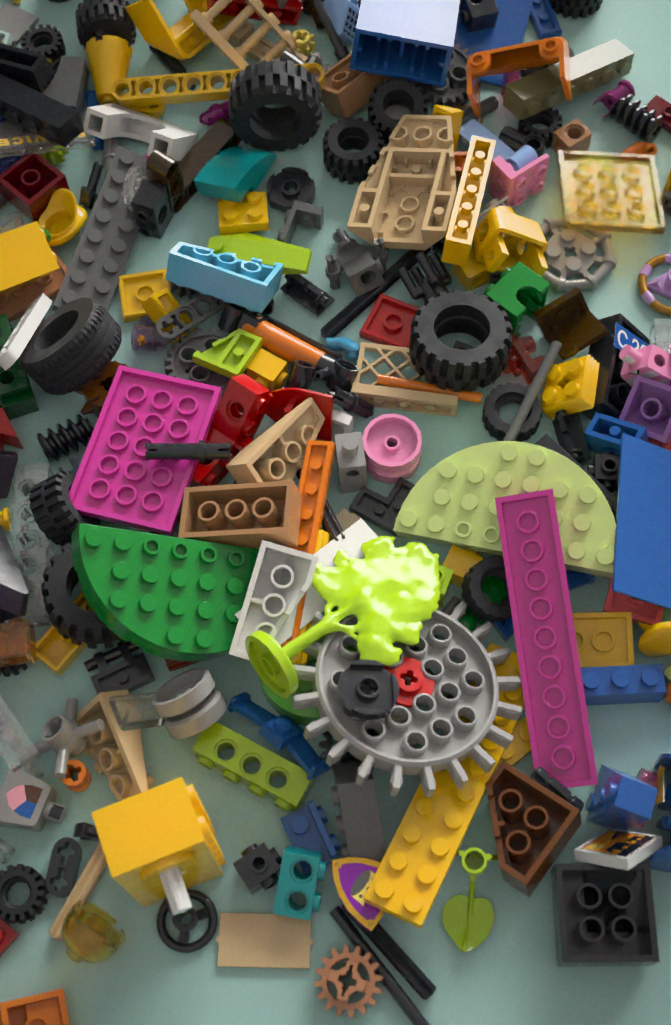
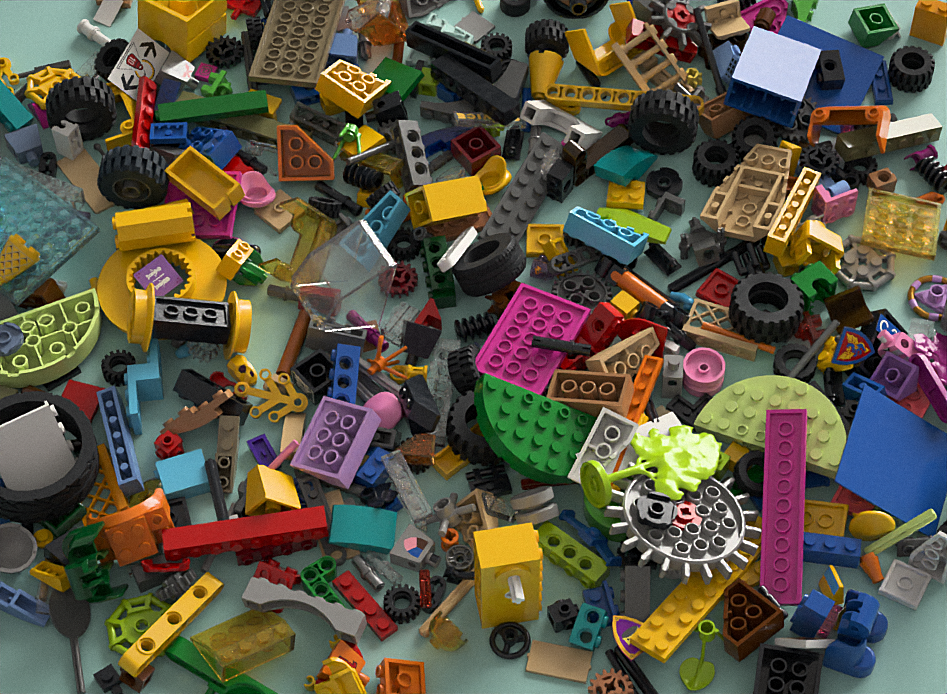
camera: 10 degrees right, 10 degrees down
(48, 865) = (425, 588): none -> clear red axle
(81, 167) = (513, 144): none -> black hinge
(85, 797) = (460, 552): none -> dark grey wheel
(88, 194) = (514, 162): black bar -> none
(231, 354) = (600, 289): lime wing -> none
(489, 123) = (820, 160): none -> black gear
(590, 380) = (851, 347): none -> shield
(635, 745) = (831, 586): none -> yellow slope

